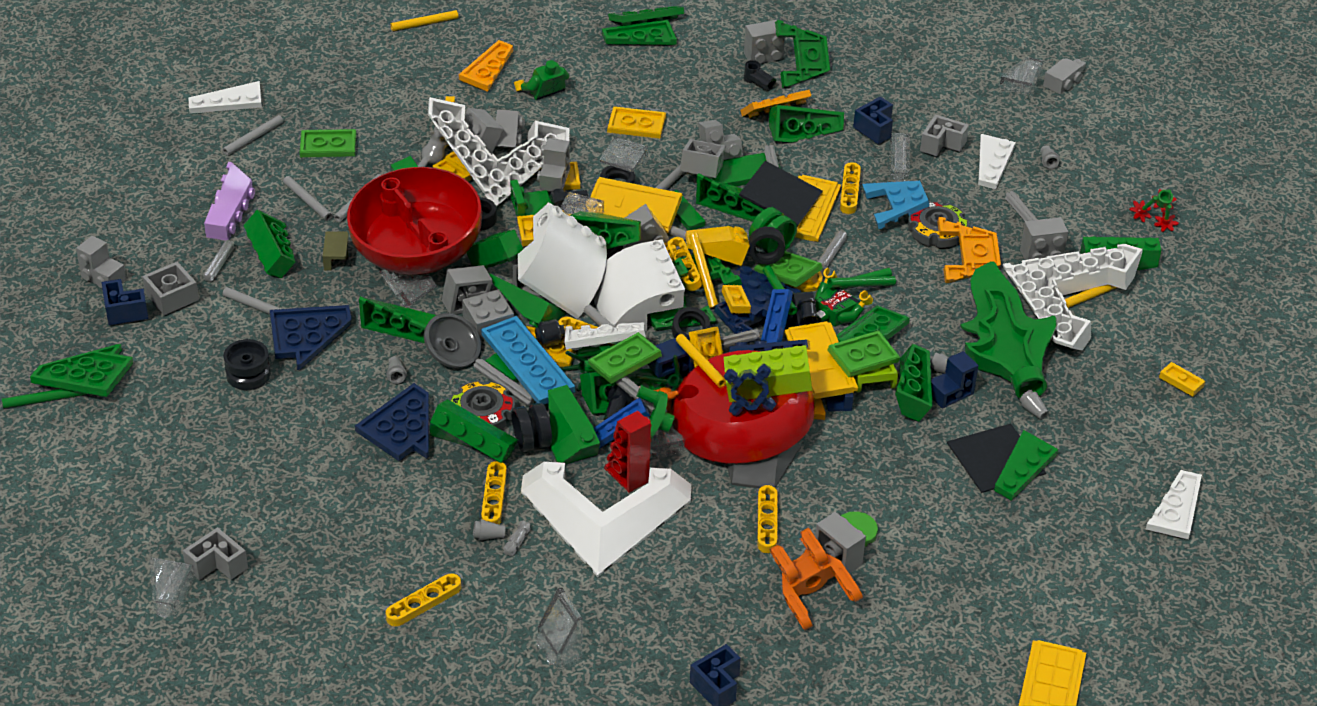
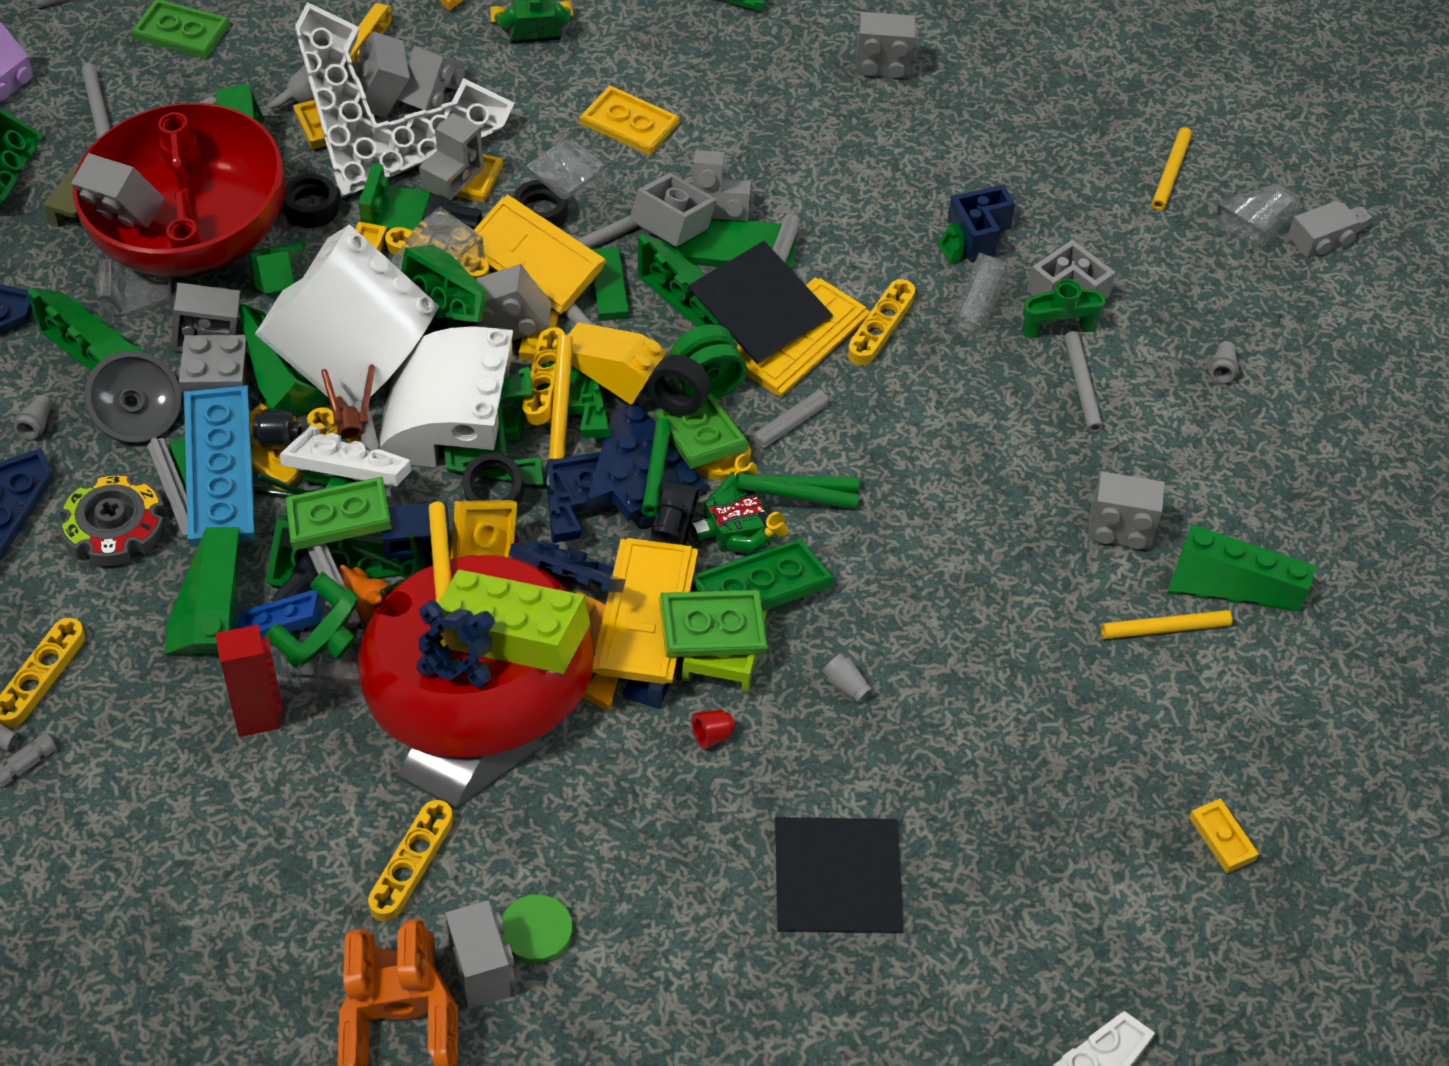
camera: 20 degrees right, 10 degrees up
(381, 229) = (117, 191): none -> light grey brick
(465, 428) = (61, 559): green wedge -> none
(531, 427) = (147, 580): black wheel -> none
(589, 316) = (347, 418): none -> copper plant
(606, 535) = (151, 804): white wedge -> none
(736, 299) = (580, 461): yellow plate -> none
(746, 336) = (541, 530): light grey axle -> none
(754, 74) = (849, 96): black piece -> none
(754, 108) = (835, 151): light orange wing -> none
(777, 315) = (617, 515): blue plate -> none
(797, 123) = (866, 193): green wedge -> none
(810, 53) = (942, 84): green wing -> none
(865, 137) = (952, 243): none -> green tile
(887, 409) = (712, 727): none -> red hat
(903, 197) = (949, 366): dark azure wing -> none
(914, 386) = (764, 704): green wedge -> none
(925, 225) = (979, 427): dark grey piece -> none
(950, 147) = (1063, 303): none -> green connector
(956, 382) = (840, 720): dark blue brick -> none
(960, 64) = (1171, 169): none -> yellow piece
(976, 247) = (1013, 495): light orange wing -> none
(978, 187) = (1083, 382): none -> light grey piece
(993, 159) = (1134, 339): white wing -> none
(1008, 339) = (973, 659): green piece -> none
(1019, 206) = (1130, 441): light grey axle -> none
(1024, 464) = (876, 902): green wing -> none
(1032, 402) = (950, 800): light grey cone -> none
(1049, 278) = (1092, 577): white wedge -> none
(1163, 201) = (1356, 502): red plant -> none

